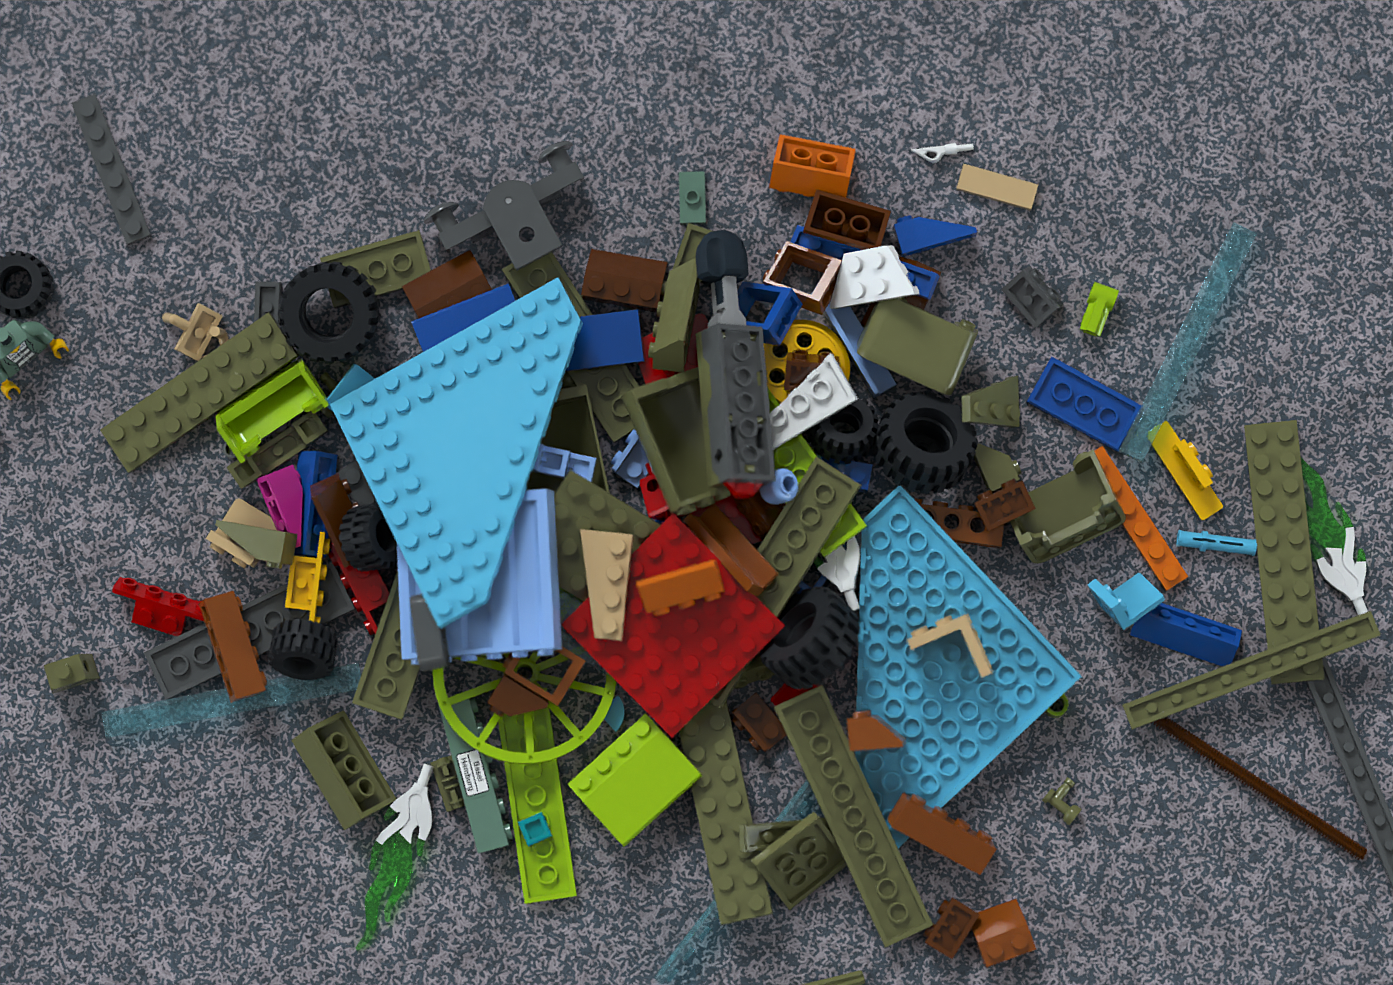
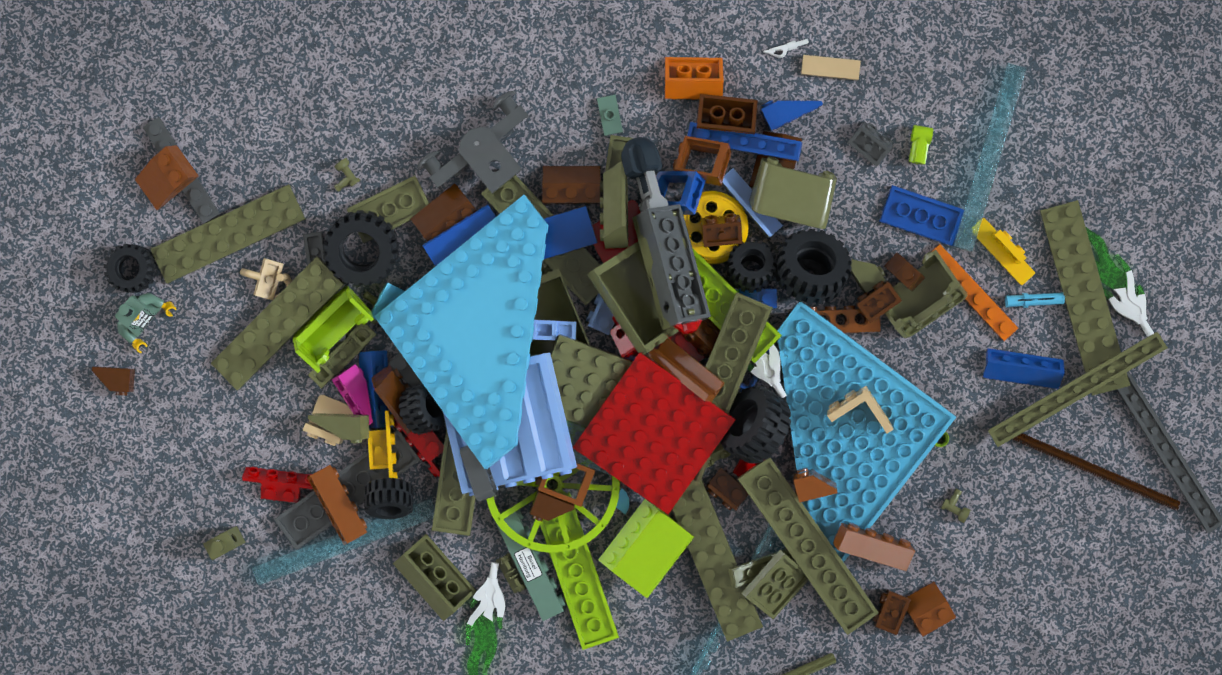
camera: 20 degrees left, 5 degrees up
(89, 172) = (165, 176): none -> dark orange slope
(156, 263) = (228, 234): none -> olive plate
(332, 220) = (350, 178): none -> olive piece
(535, 829) = (580, 595): teal tile -> none
(607, 572) = (600, 406): tan wing -> none
(681, 587) = (656, 407): orange slope -> none
(782, 489) = (717, 320): light blue head -> none
(814, 400) = (727, 251): white wing -> none
(870, 278) = (752, 153): white wing -> none
(993, 405) = (857, 229): olive wing -> none
(1048, 474) = (904, 272): none -> reddish brown slope
(1127, 601) = (979, 354): medium azure bracket -> none

